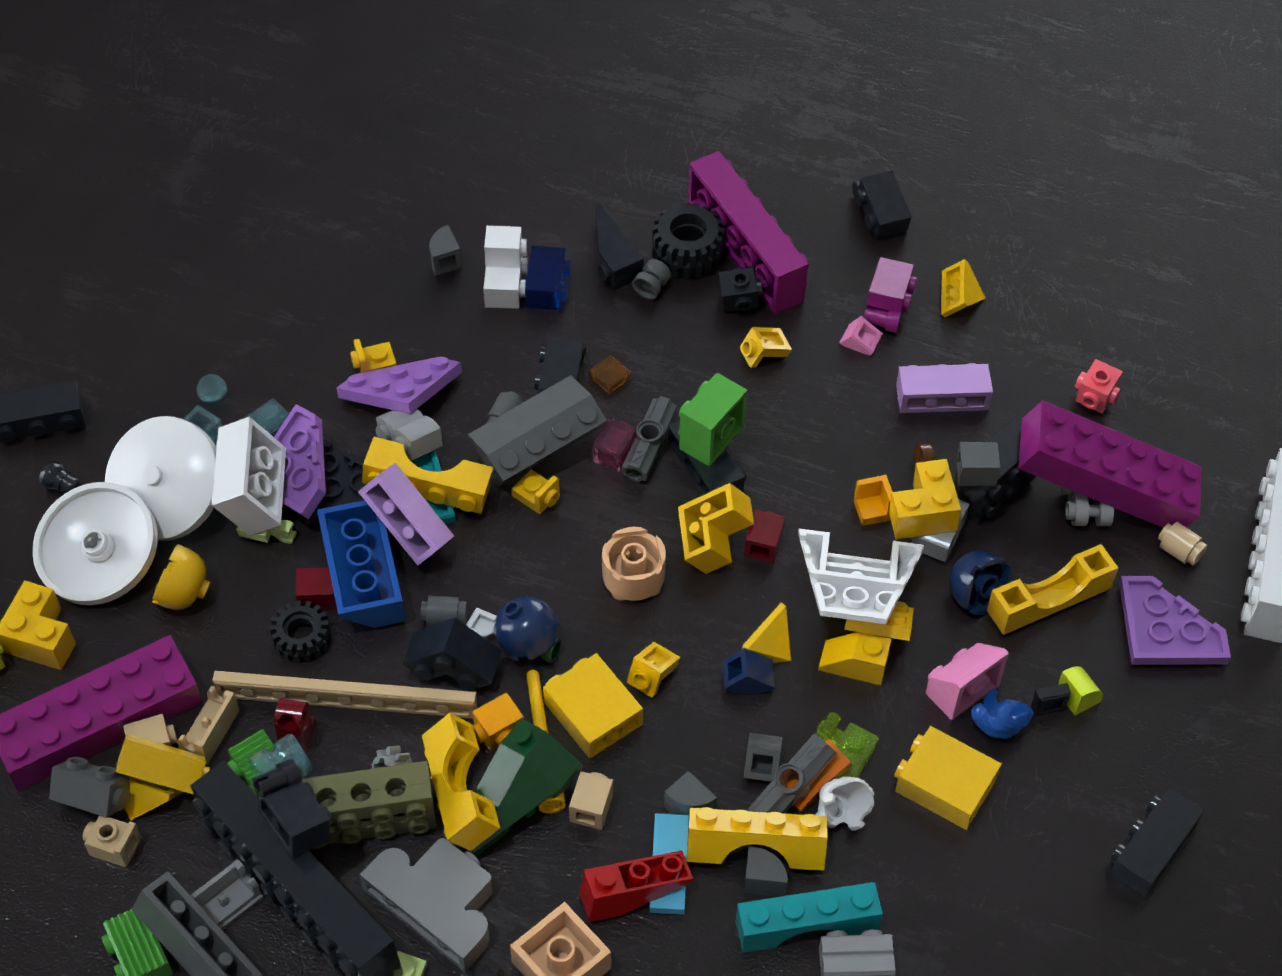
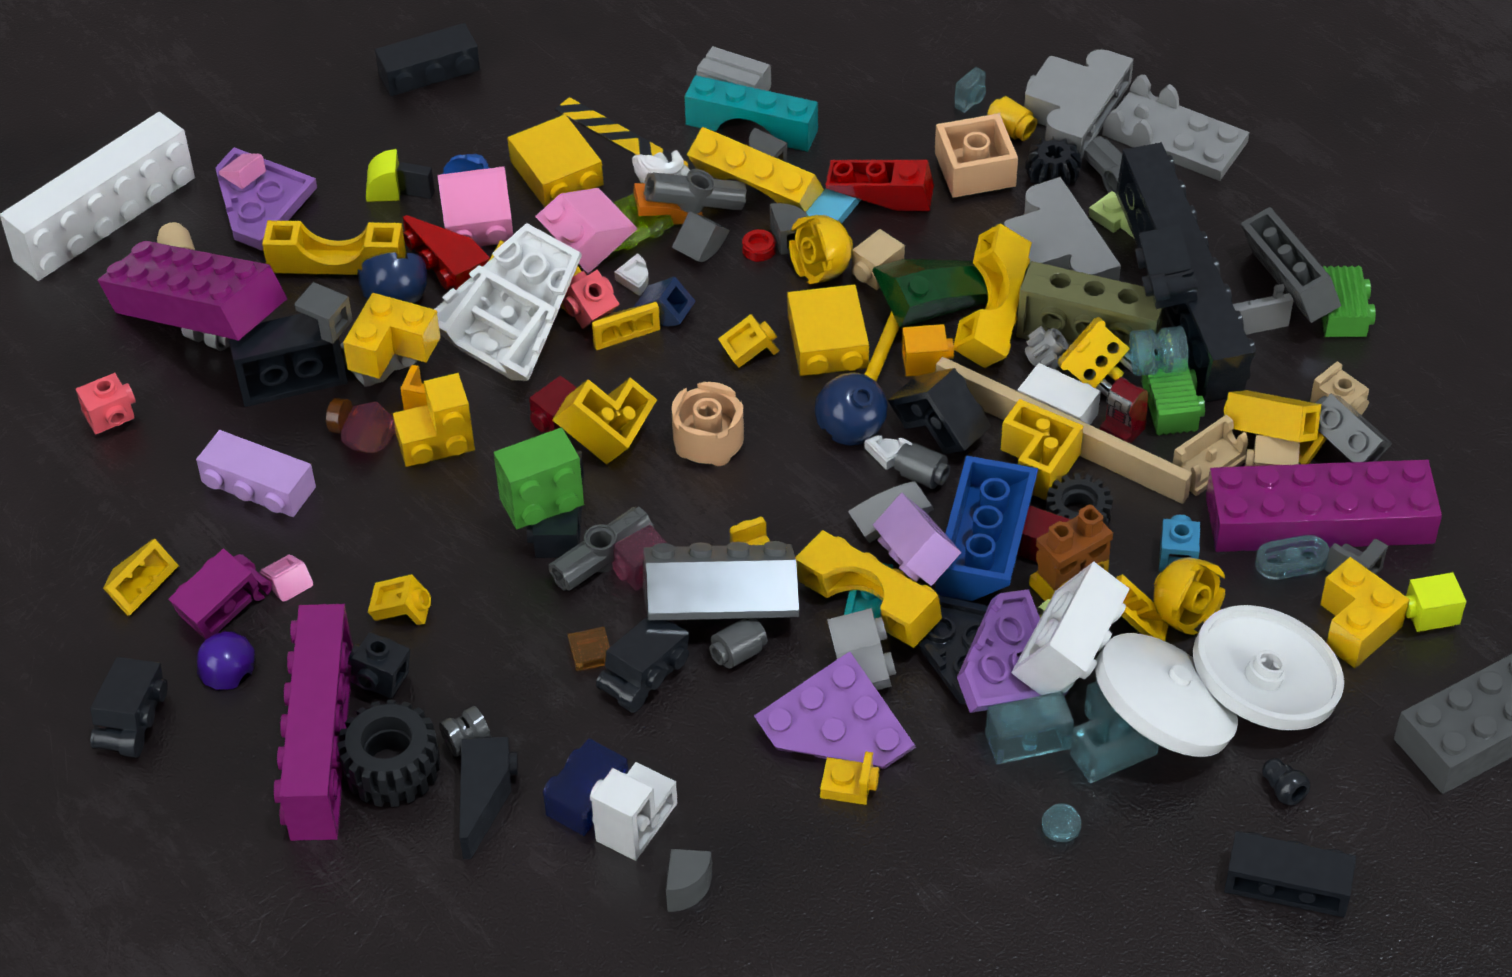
camera: 150 degrees left, 5 degrees down
(50, 673) = (1371, 558): none -> dark grey panel
(106, 654) = (1291, 557): none -> clear light blue plate
(203, 630) = (1178, 537): none -> dark azure brick
(219, 551) = (1141, 612): none -> yellow slope
(277, 559) = (1069, 550): none -> dark orange hips
(343, 756) = (1085, 350): none -> yellow piece
(346, 658) = (1041, 442): none -> yellow brick
(359, 721) = (1062, 393): none -> white brick
(449, 565) = (871, 509): none -> light grey slope
(640, 774) = (820, 248): none -> yellow cylinder
(713, 778) = (759, 245): none -> red tile
(796, 700) = (633, 274): none -> white tile
(807, 636) = (589, 298): none -> coral brick
(837, 470) = (437, 428): none -> yellow brick
(849, 263) = (225, 660): none -> dark purple hair
(863, 704) = (587, 223): none -> bright pink slope
(894, 457) = (368, 428): none -> clear pink brick
(914, 854) = (612, 130): none -> sticker
(948, 631) = (444, 251): none -> red slope
(1197, 628) = (244, 169): none -> bright pink slope

